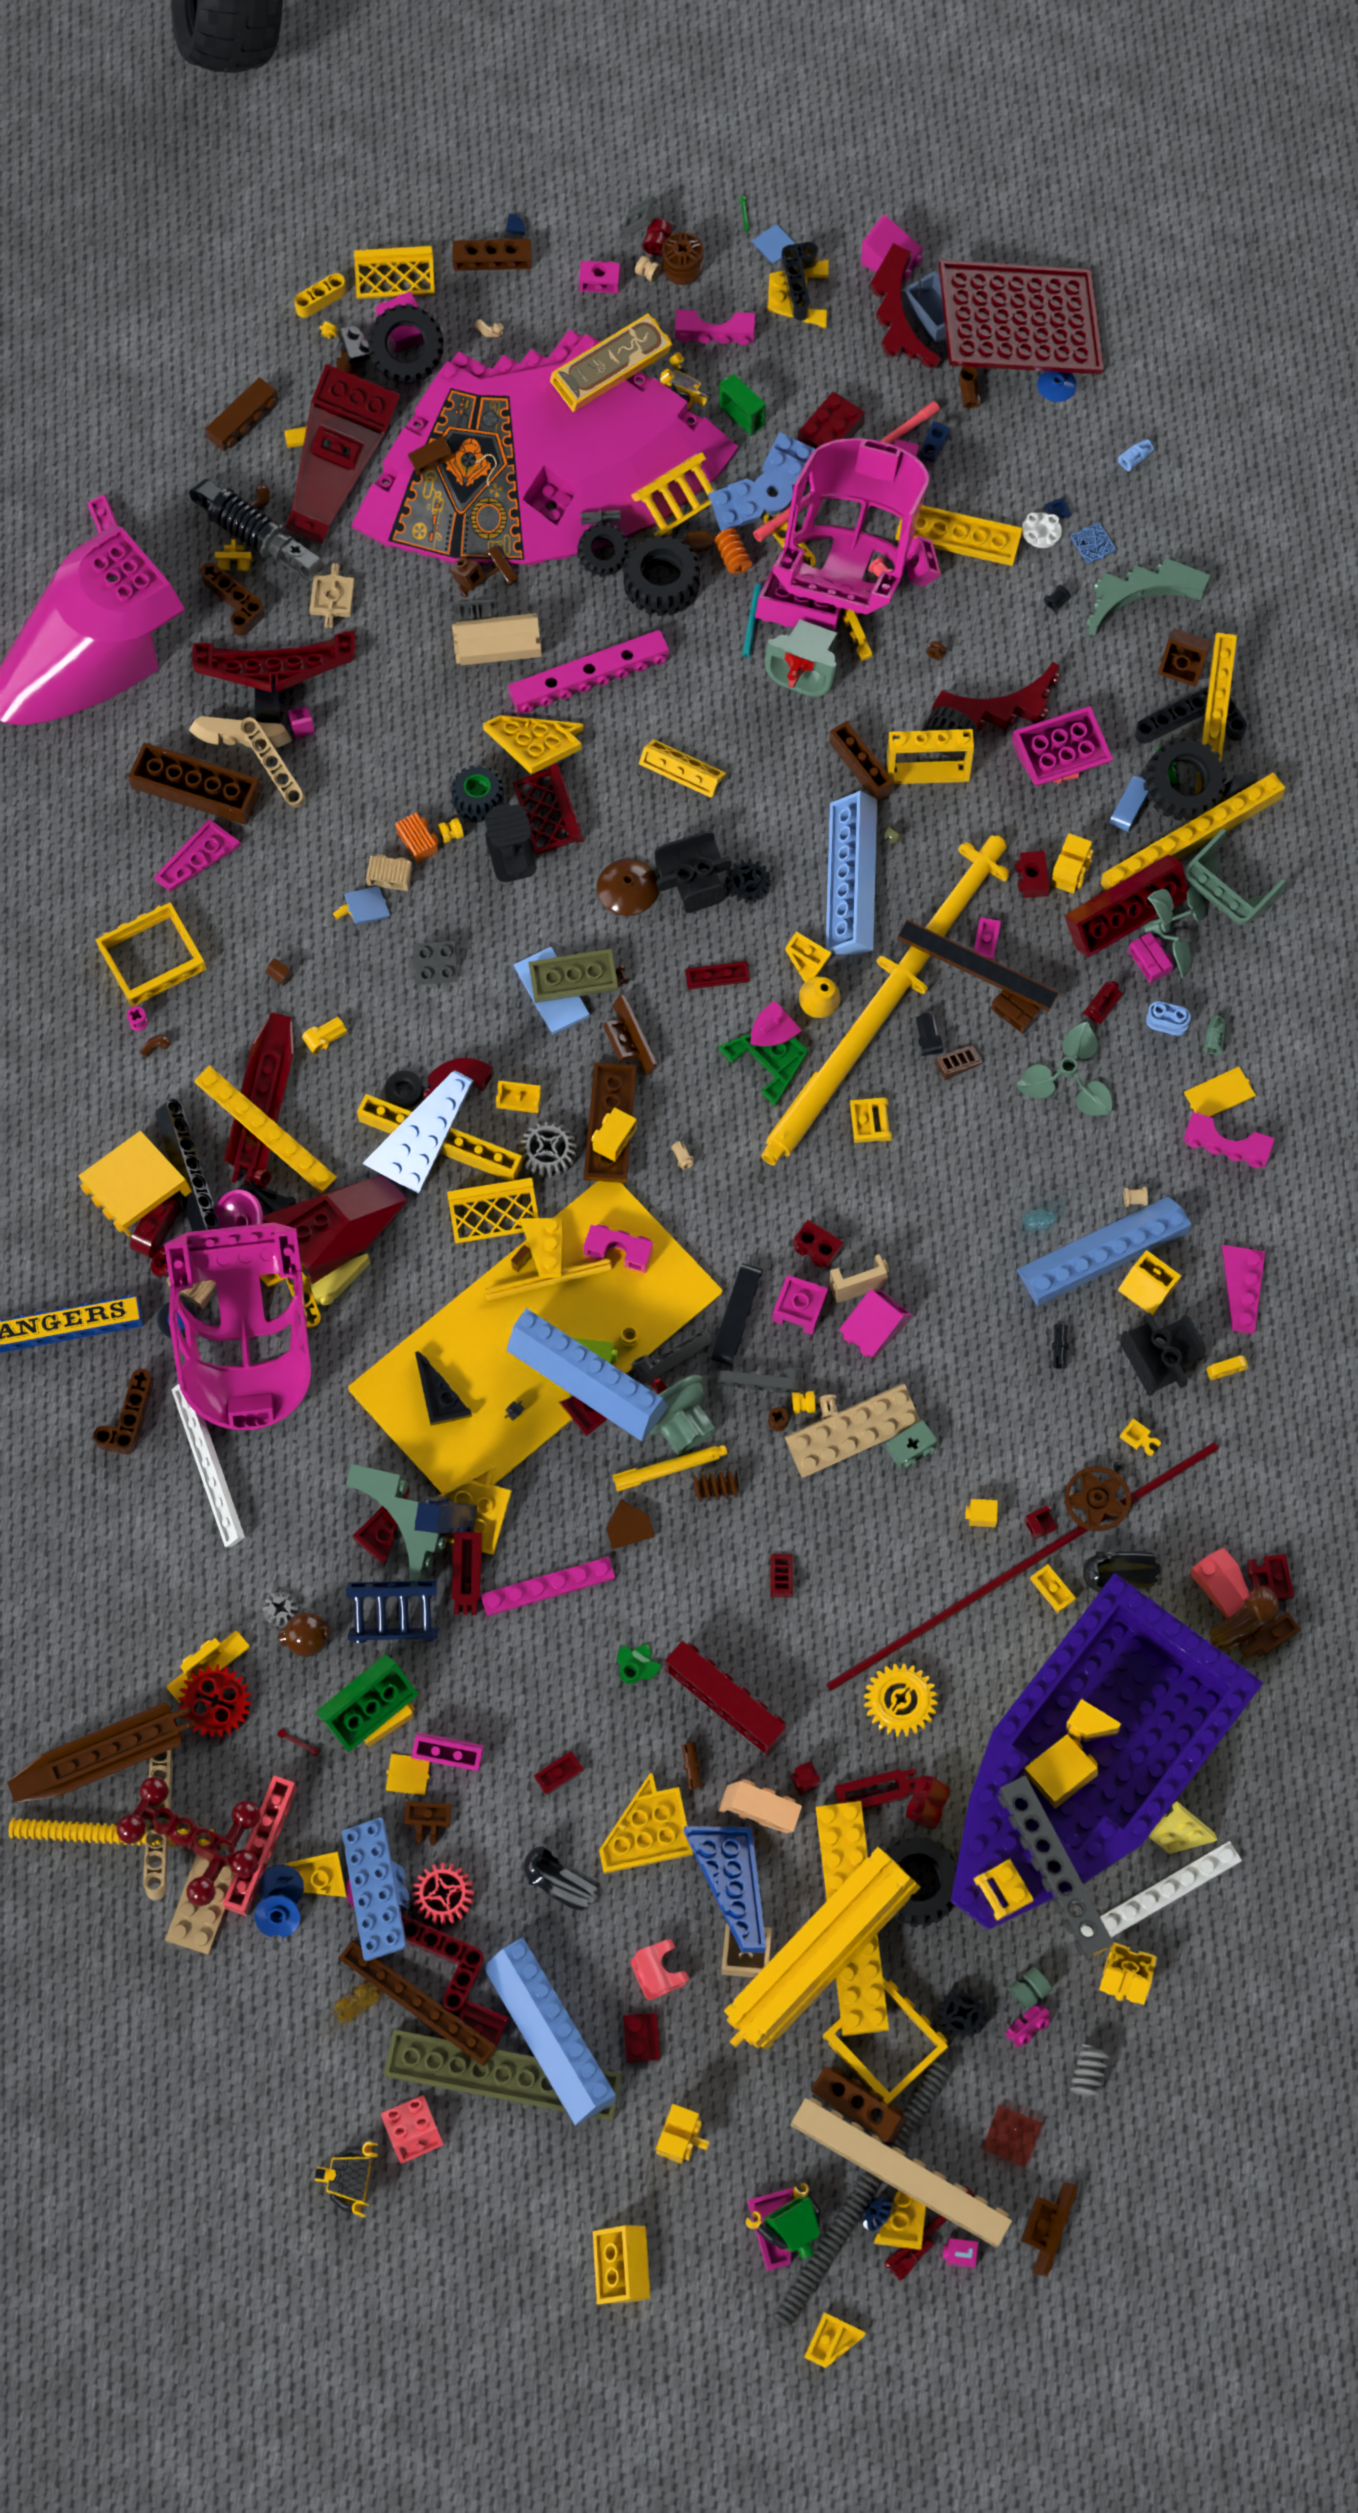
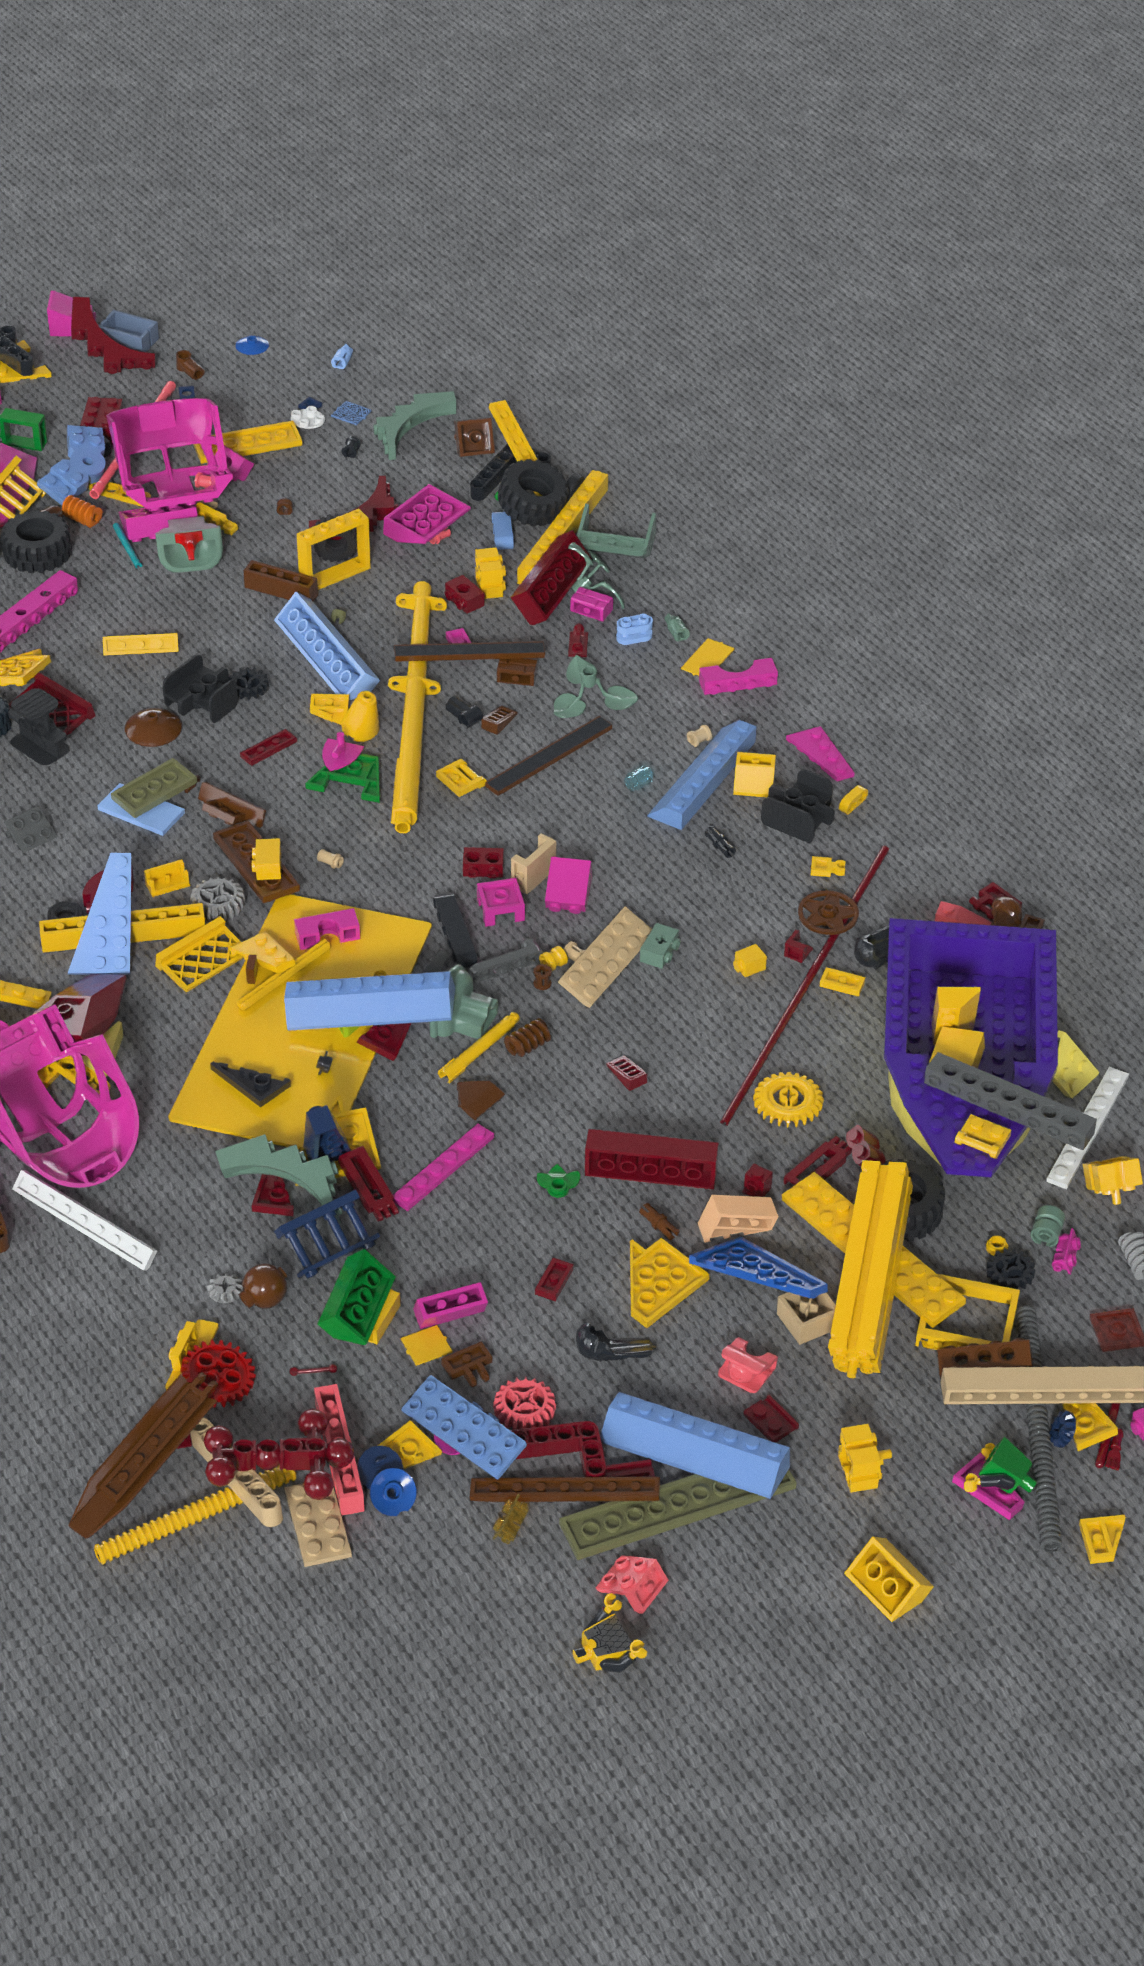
camera: 35 degrees left, 25 degrees down
(971, 1986) = (996, 1241): none -> yellow plate
(974, 1137) = (548, 755): none -> black tile
(1020, 317) = (197, 313): dark red plate -> none

